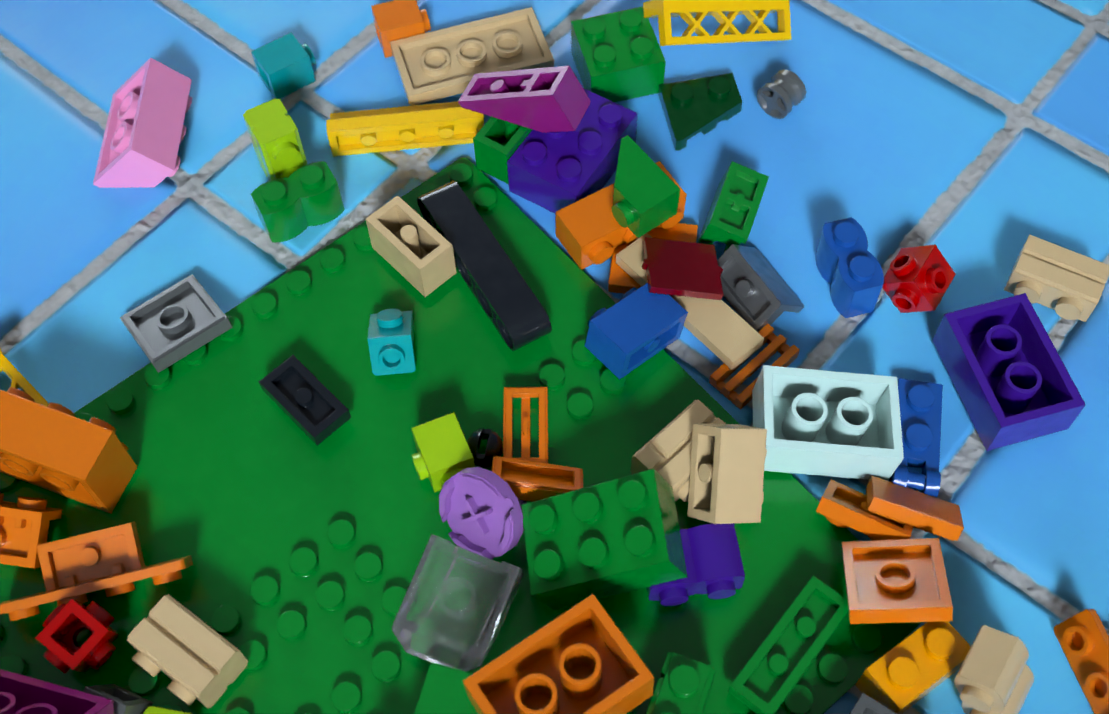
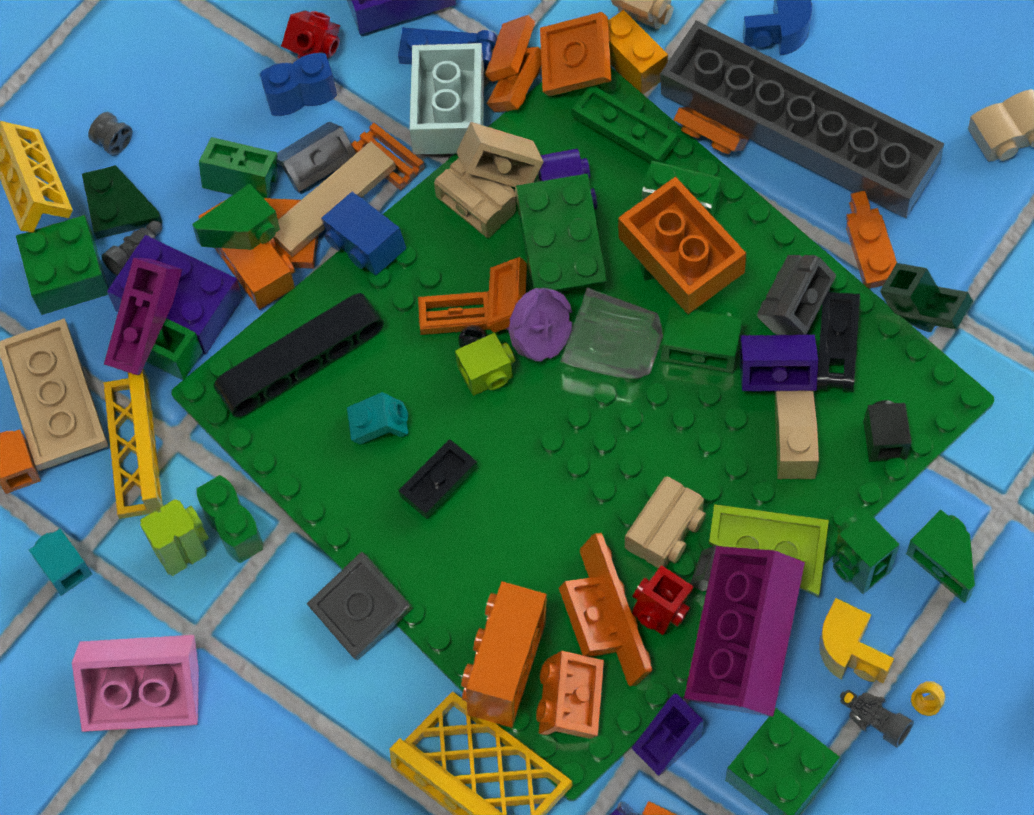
camera: 90 degrees left, 5 degrees up
(411, 245) = (288, 405): tan brick -> none
(646, 124) = (116, 257): none -> dark grey piece
(682, 268) = (307, 198): dark red piece -> none

